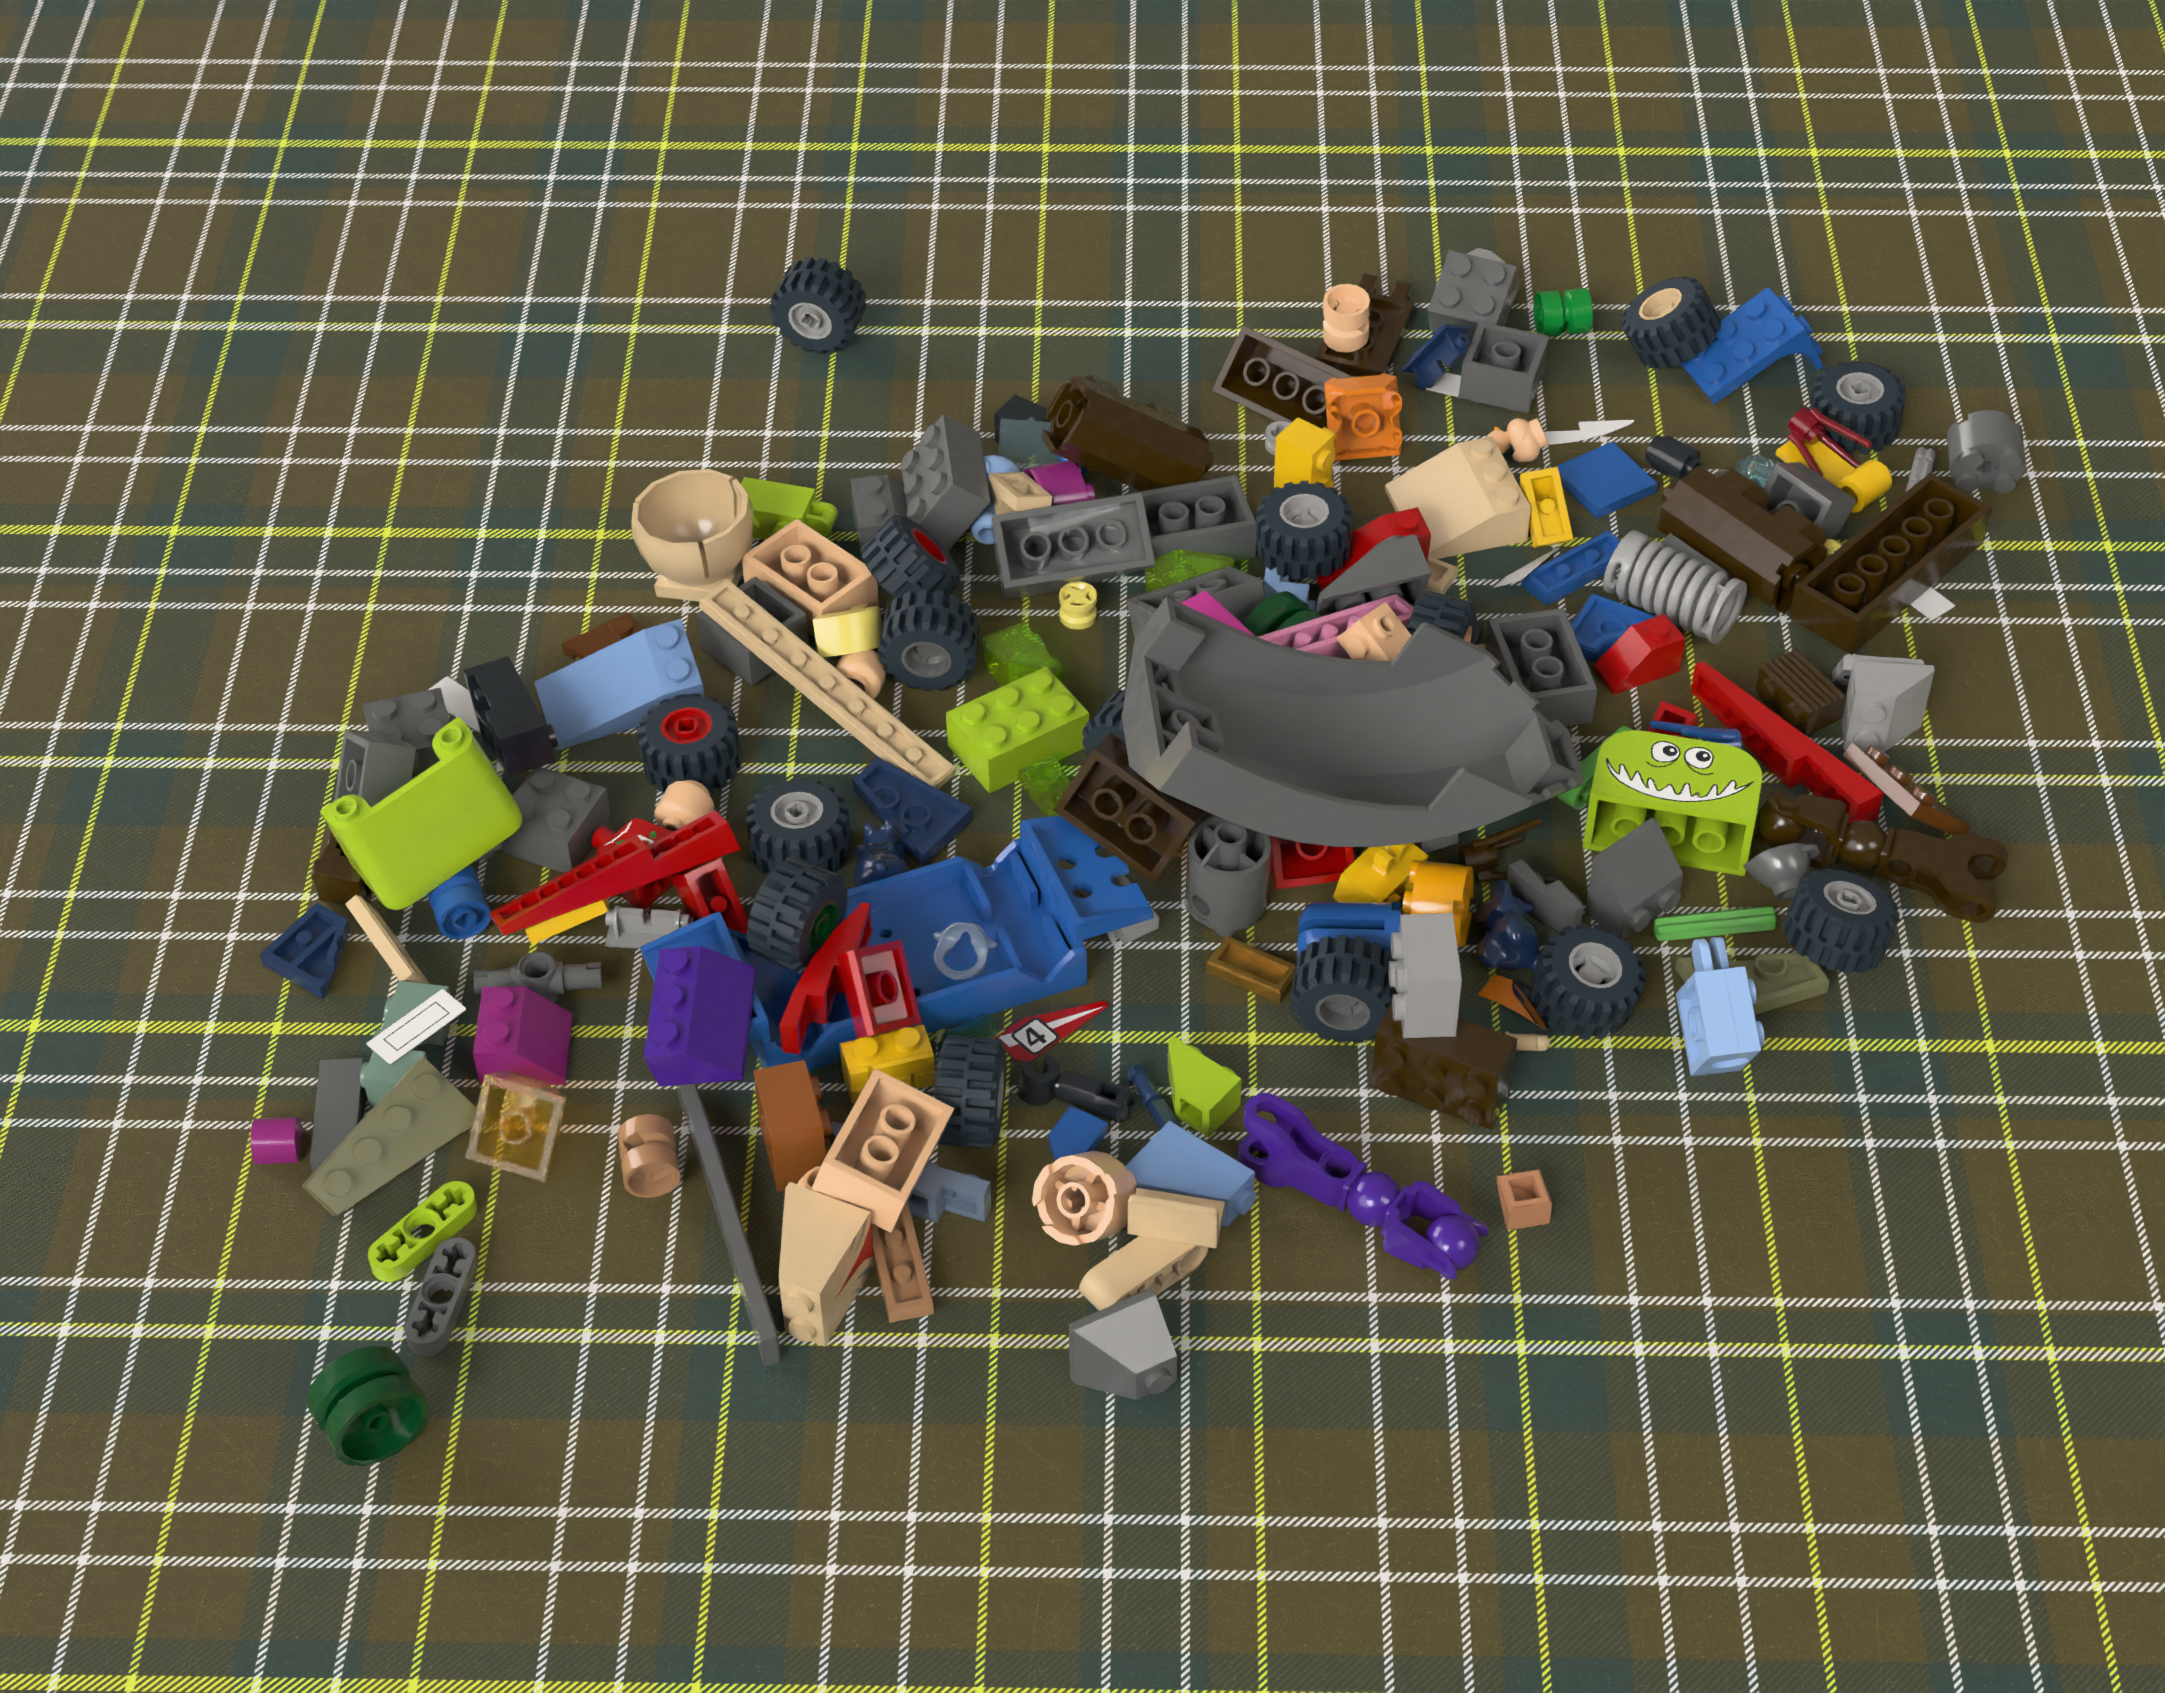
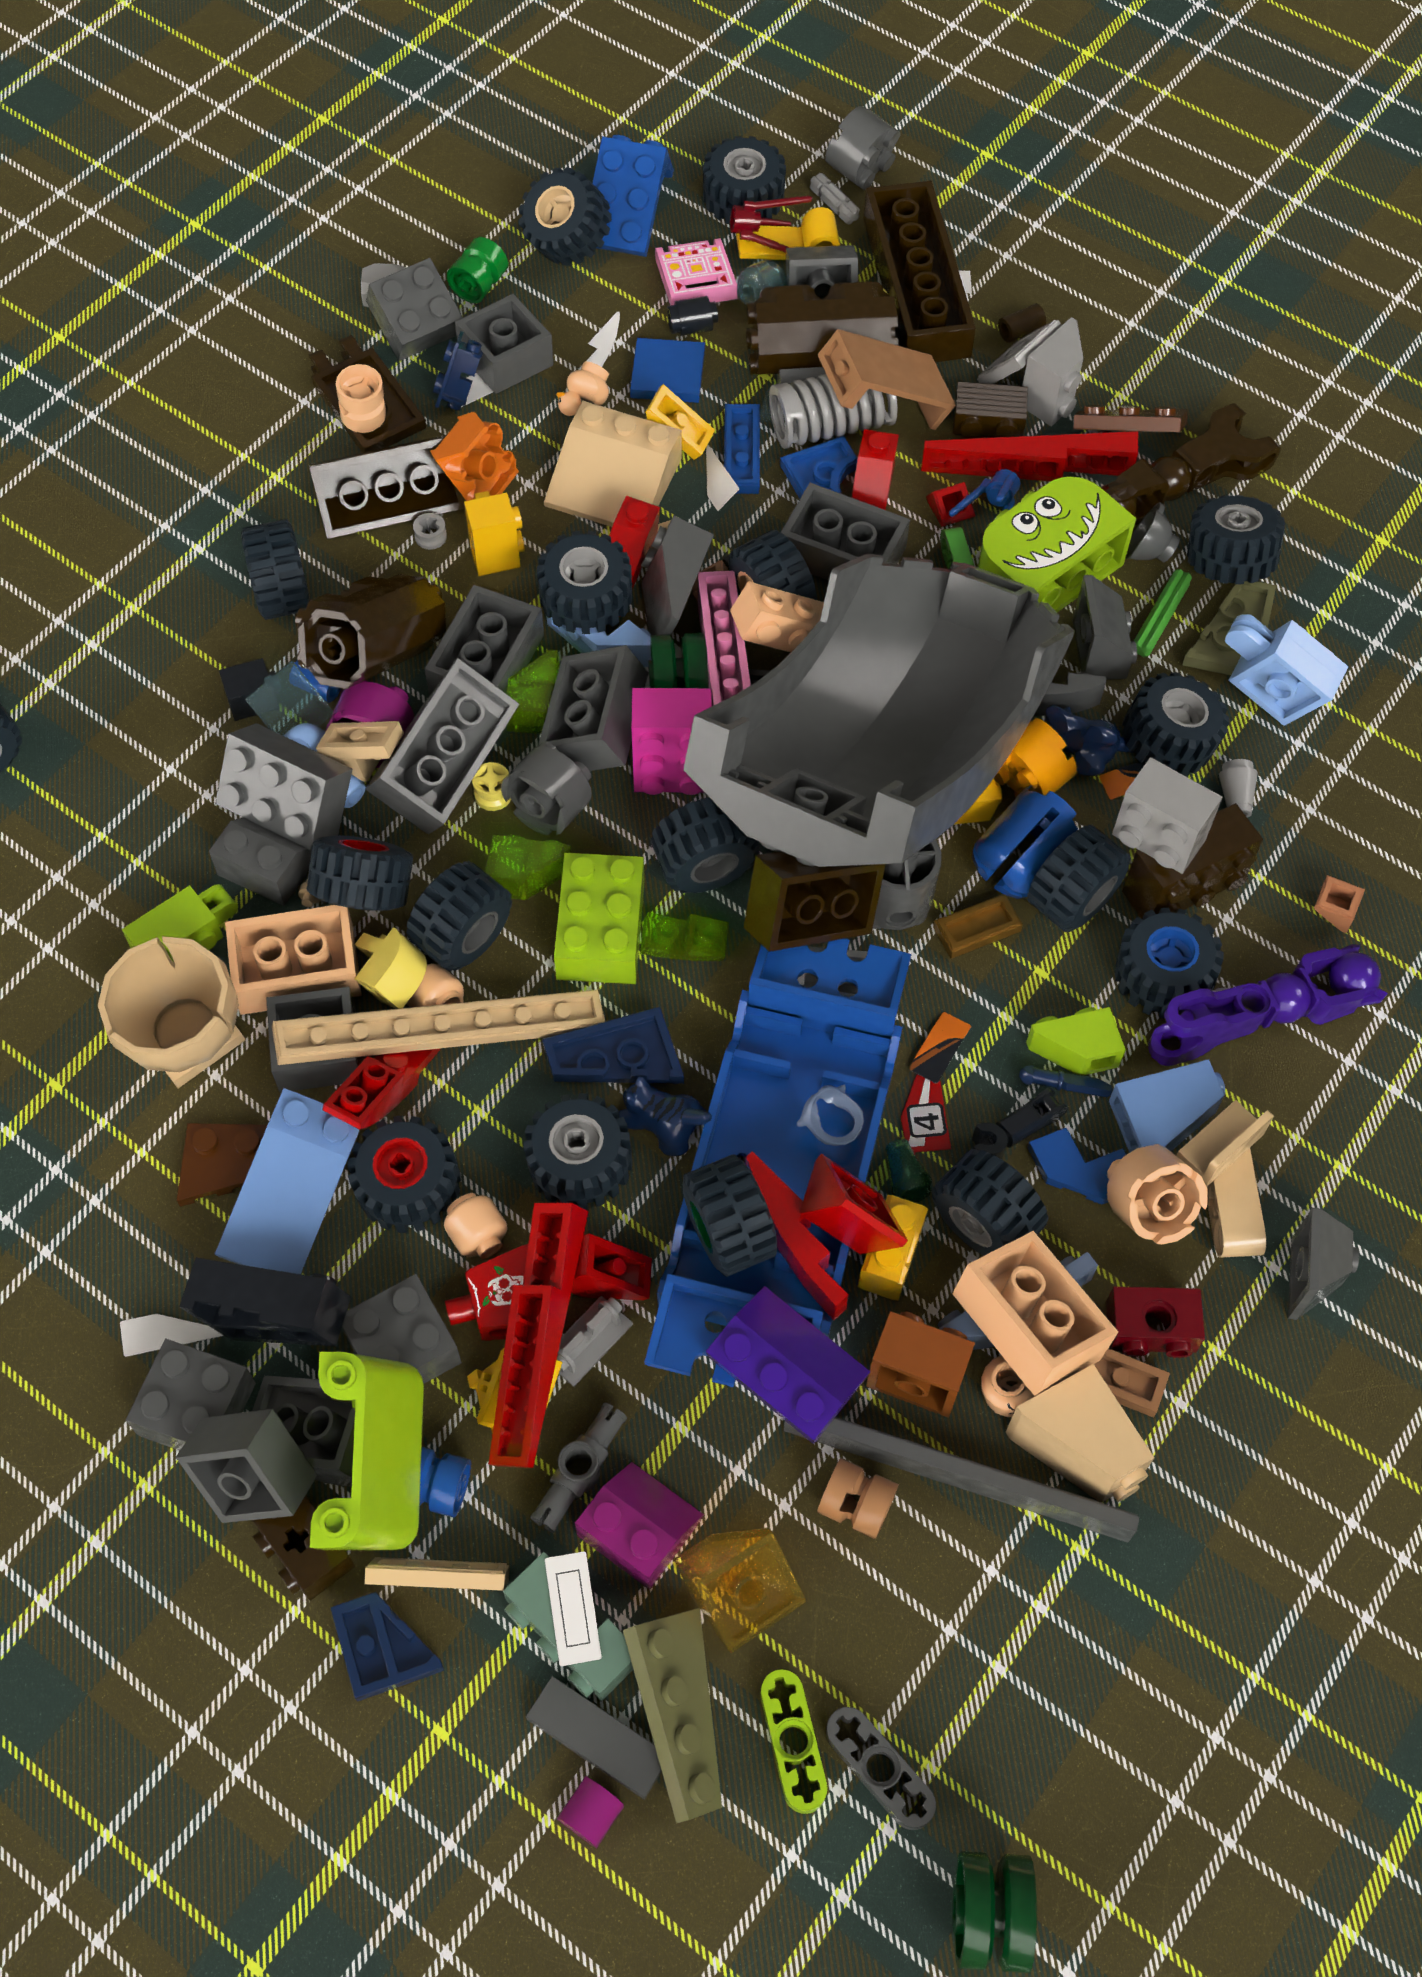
camera: 55 degrees left, 15 degrees up
(740, 682) = (377, 1087): none -> red slope
(996, 1279) = (1175, 1307): none -> dark red brick
(1100, 629) = (547, 789): none -> dark grey brick
(1112, 1006) = (939, 1047): none -> sticker
(1137, 360) = (275, 568): none -> black wheel
(1340, 1096) = (1167, 958): none -> black wheel
(1576, 1068) = (1239, 784): none -> light grey cone
(1729, 429) = (693, 265): none -> bright pink container
(1736, 591) = (864, 363): none -> medium nougat panel
(1943, 663) = (1021, 322): none -> dark brown piece

